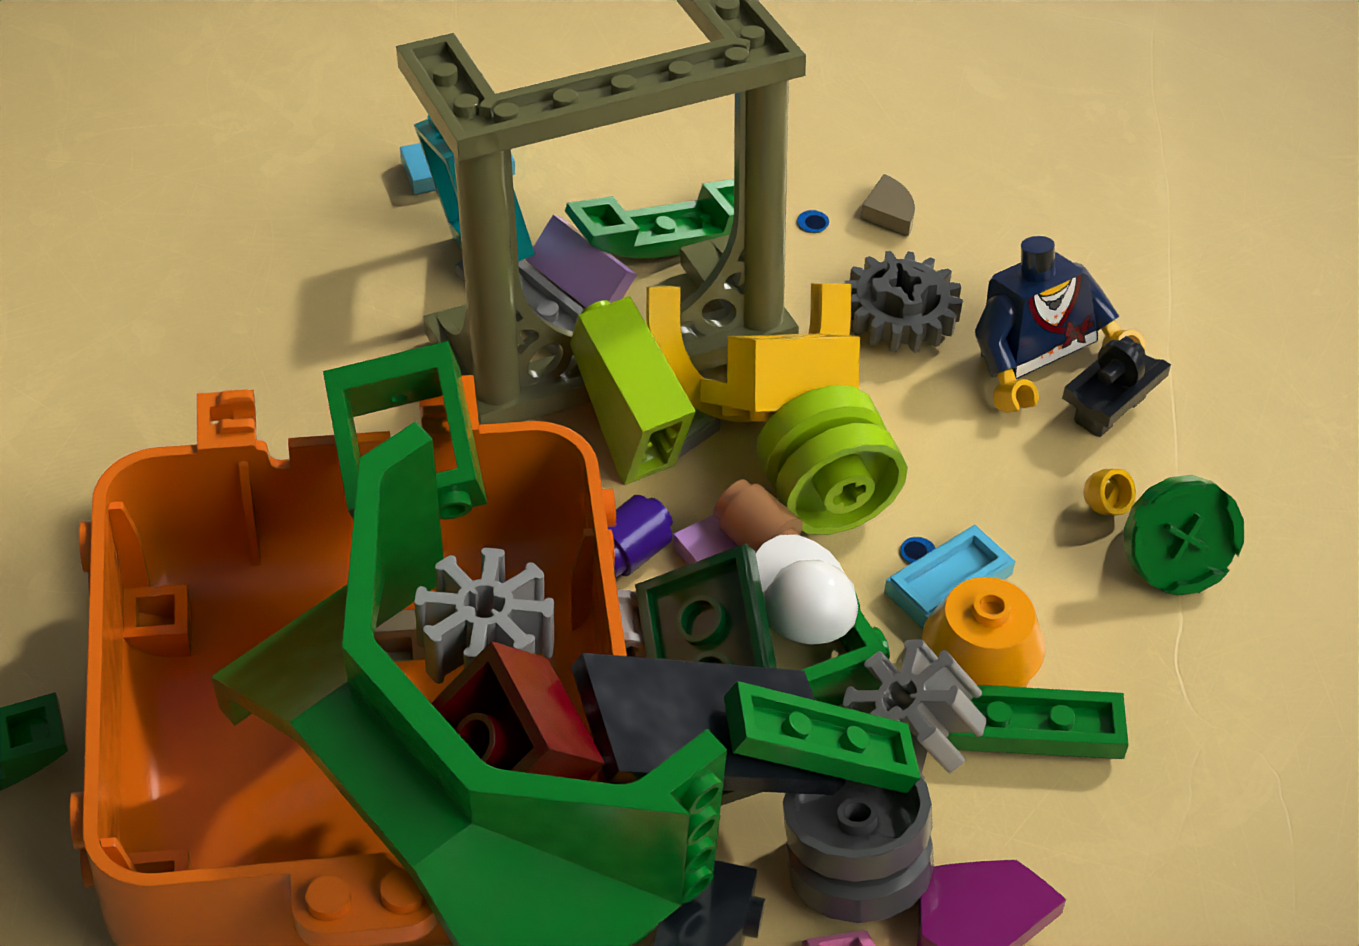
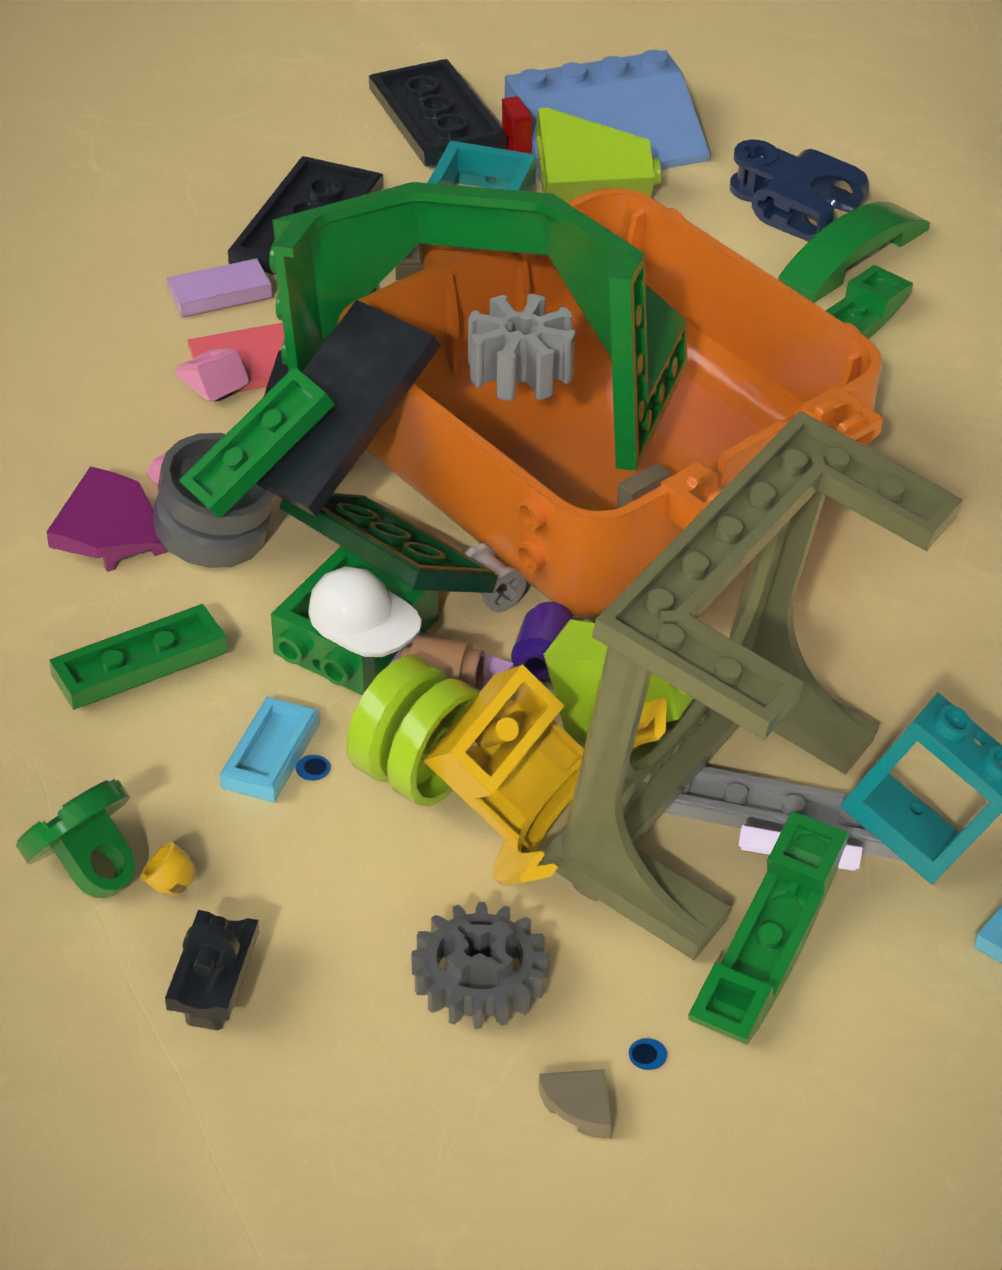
camera: 150 degrees right, 5 degrees down
(397, 382) = (691, 423): green window -> none
(519, 715) = (433, 291): dark red slope -> none
(927, 695) = (224, 587): light grey gear -> none
(988, 632) = (207, 690): light orange cone -> none
(1039, 316) = (319, 997): dark blue torso -> none

